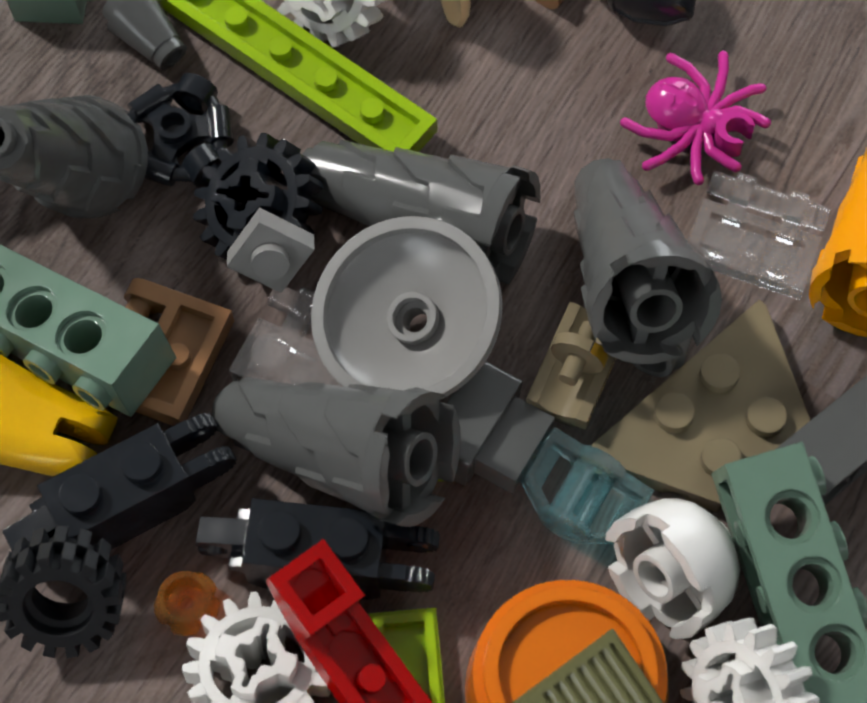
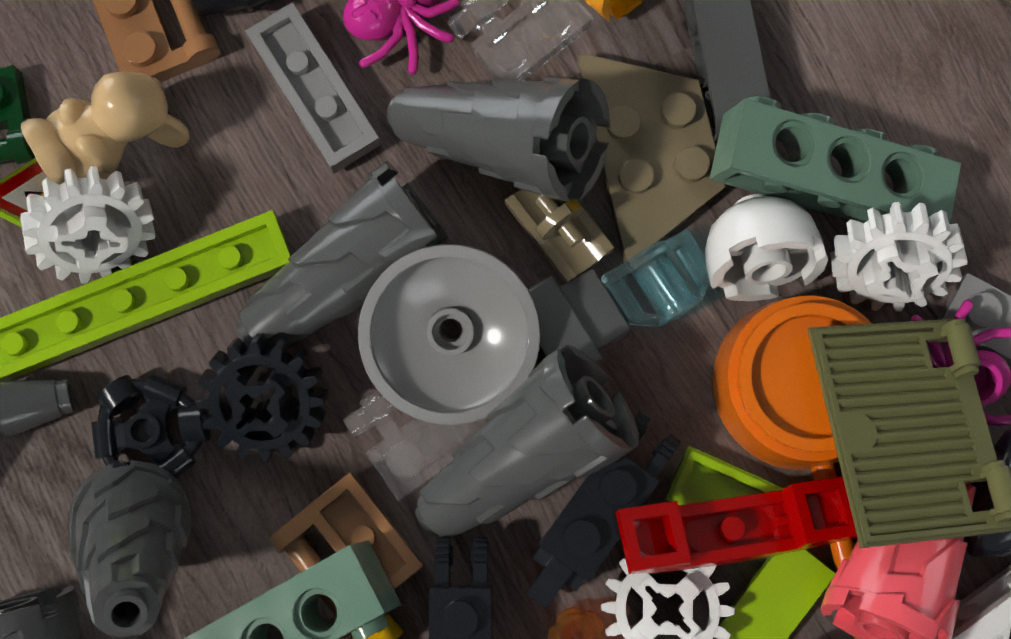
camera: 55 degrees left, 15 degrees up
(270, 250) = (323, 413): light grey plate -> none
(573, 95) = (313, 87): none -> light grey plate

